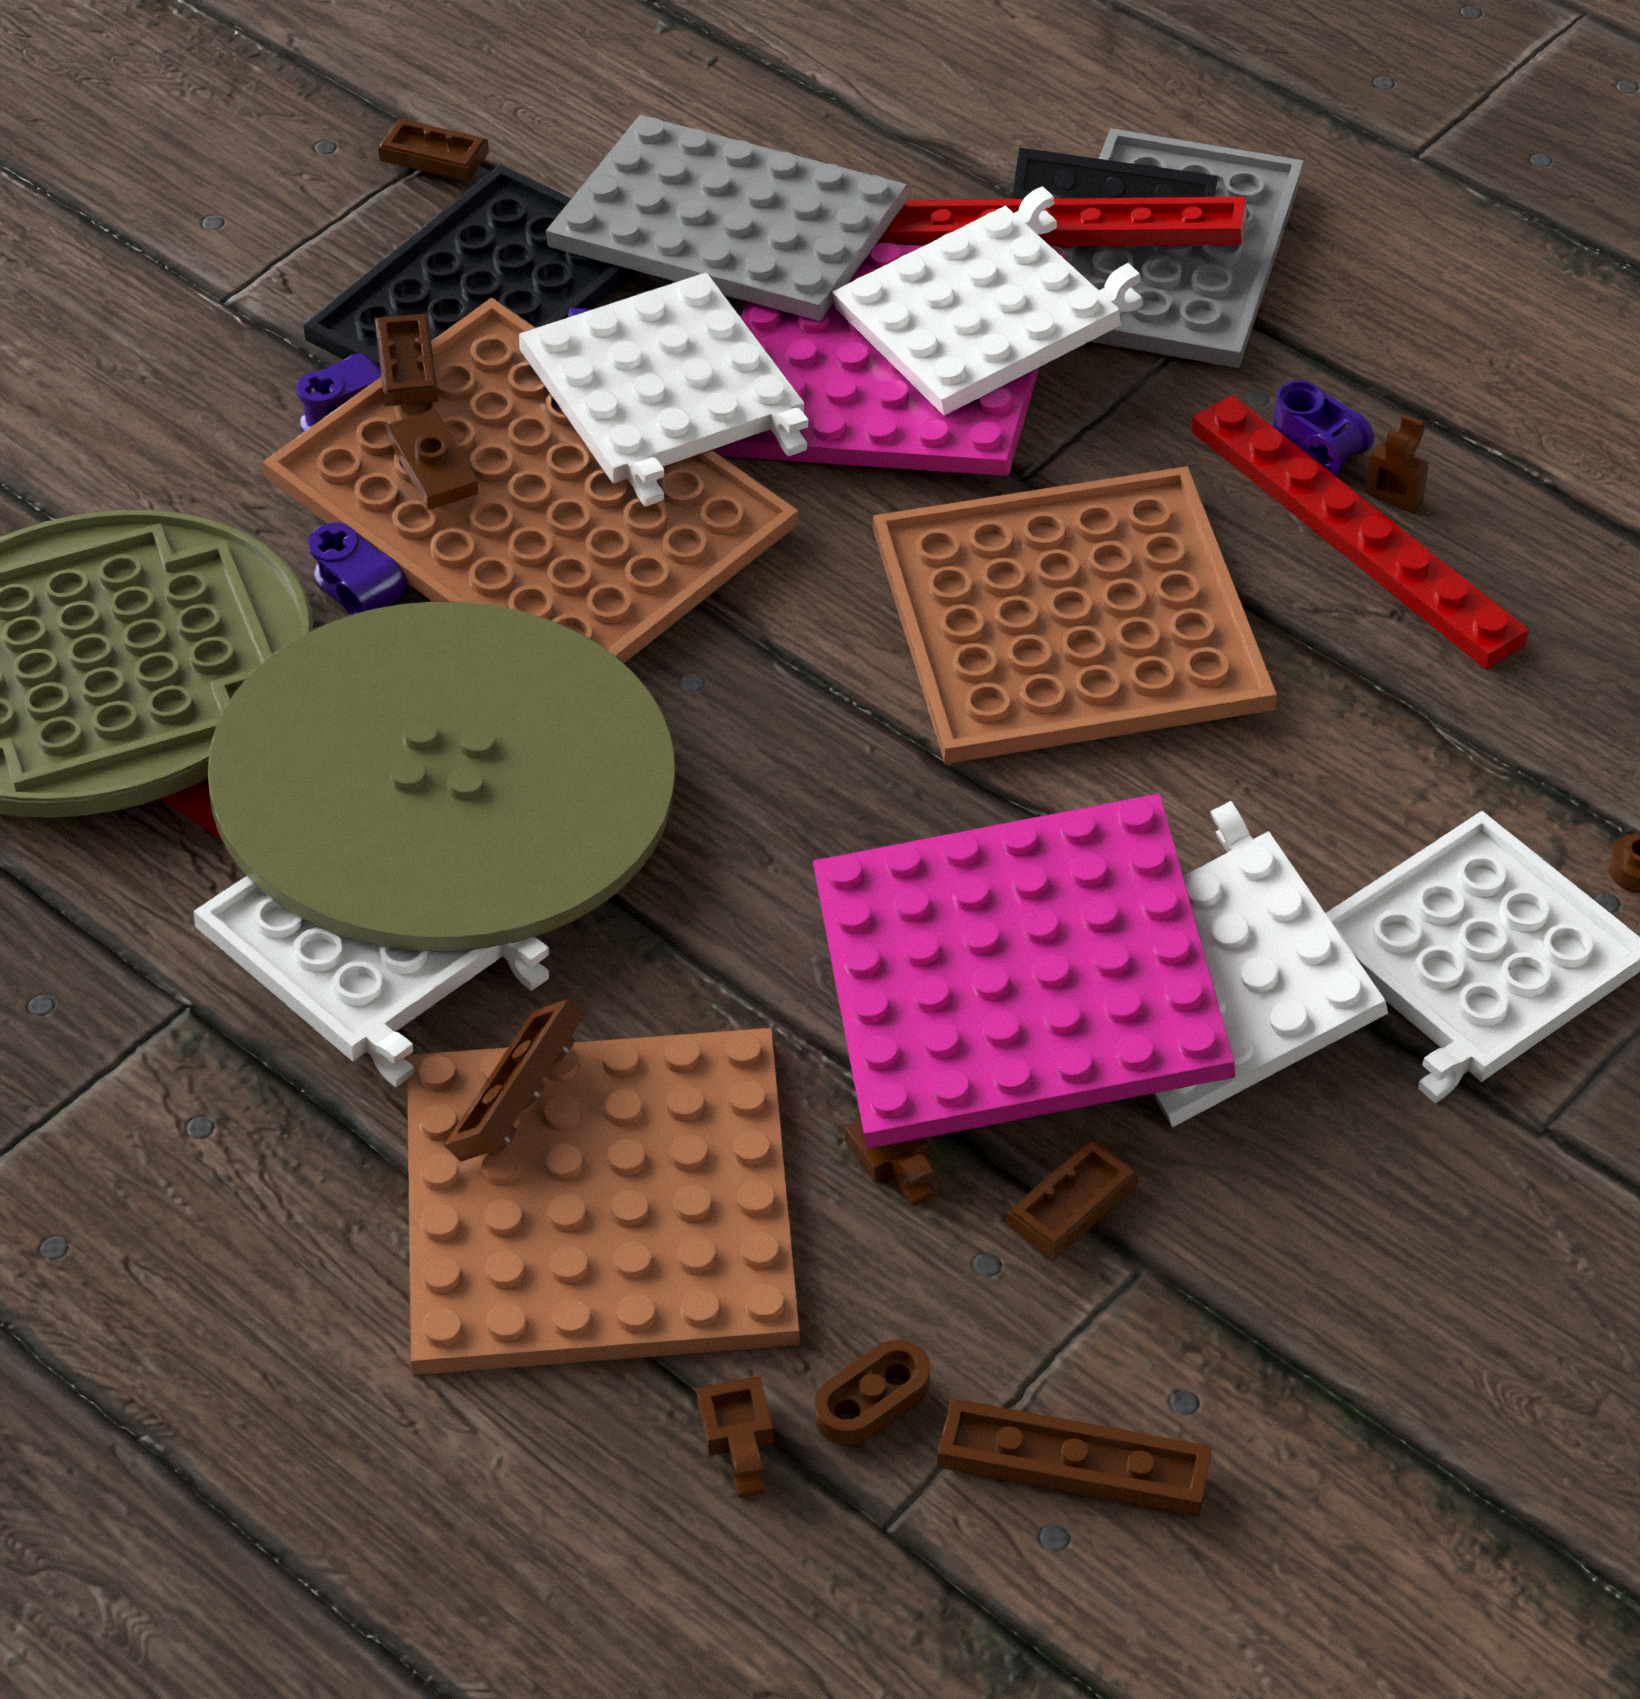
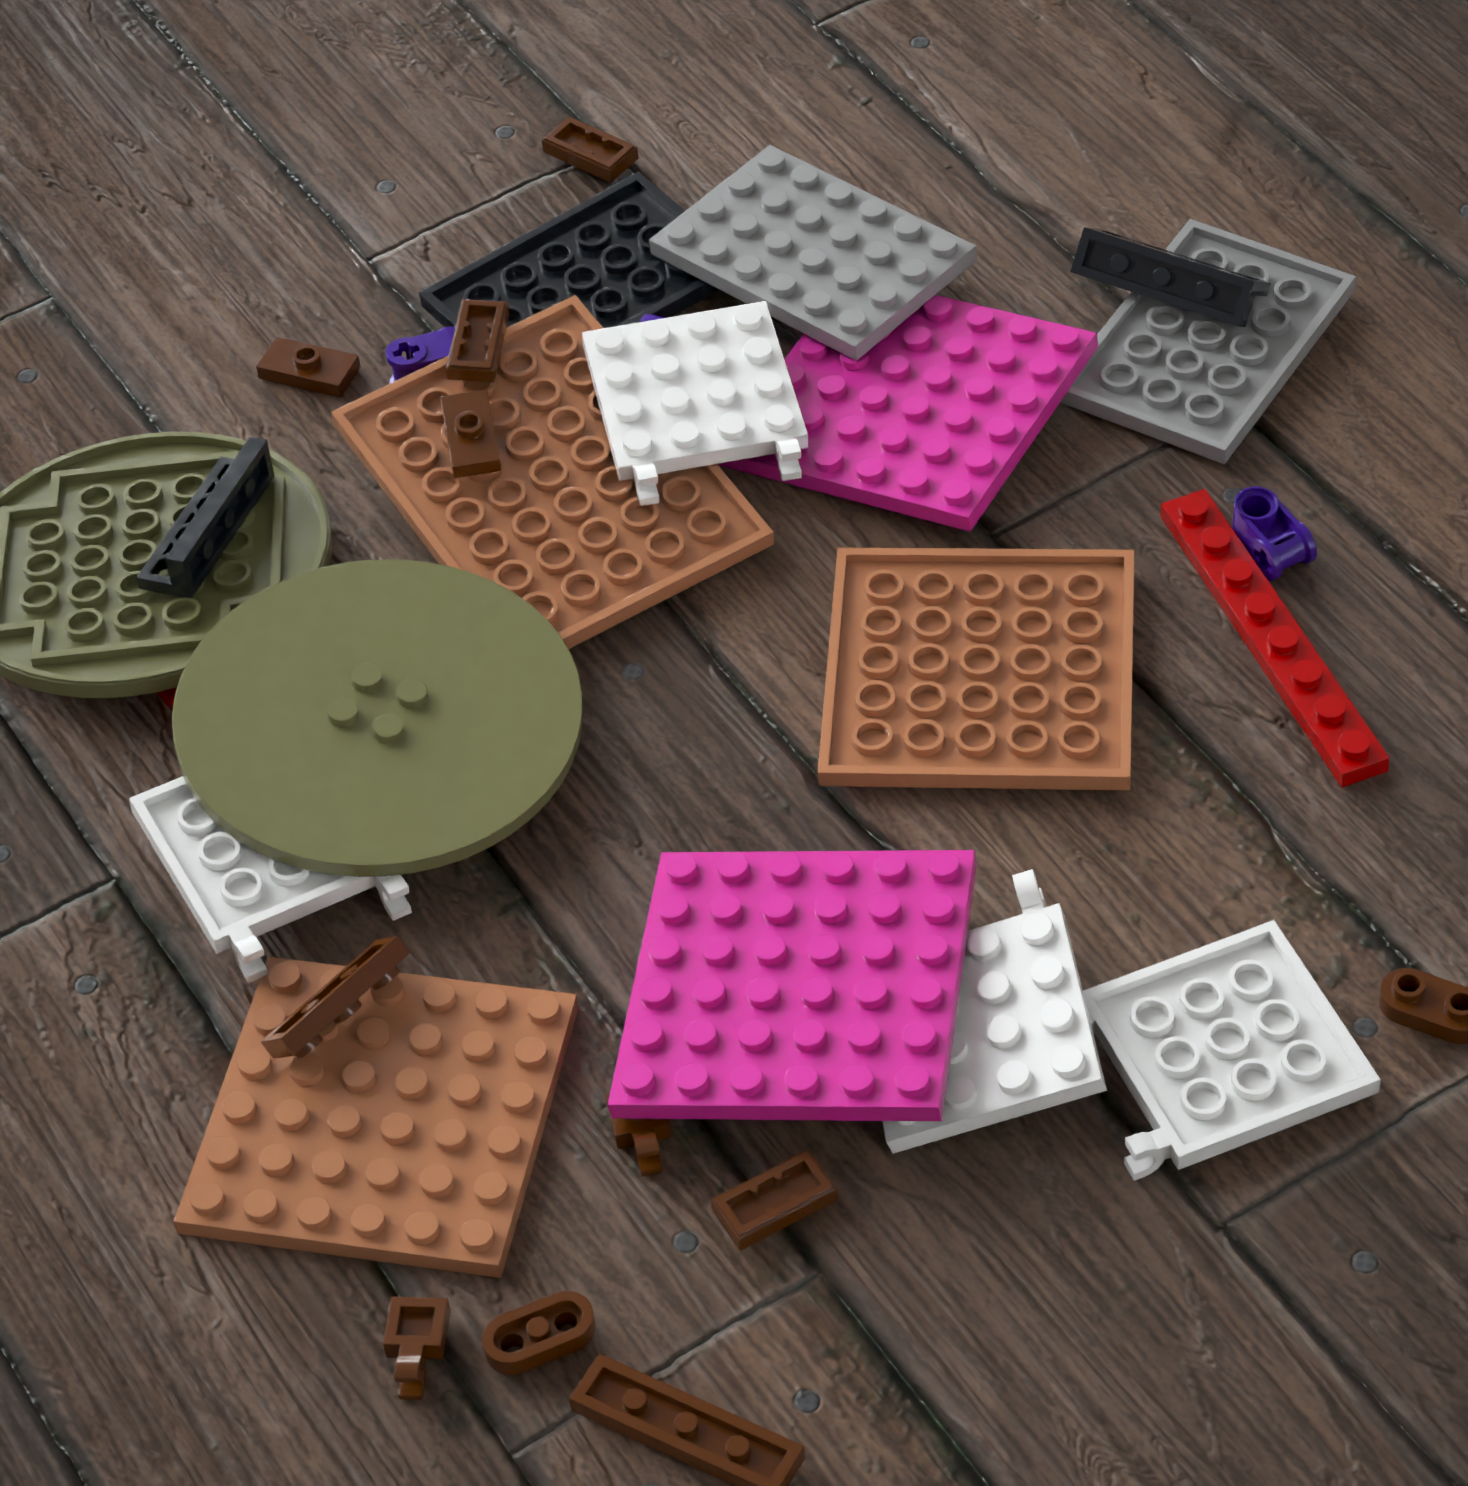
camera: 20 degrees right, 0 degrees up
(172, 610) = (209, 522): none -> black fence
(201, 423) = (308, 366): none -> reddish brown plate
(354, 570) = (379, 520): dark purple piece -> none
(983, 305) = (999, 370): white plate -> none
(1088, 220) = (1112, 303): red plate -> none
(1395, 471) = (1321, 585): reddish brown plate -> none

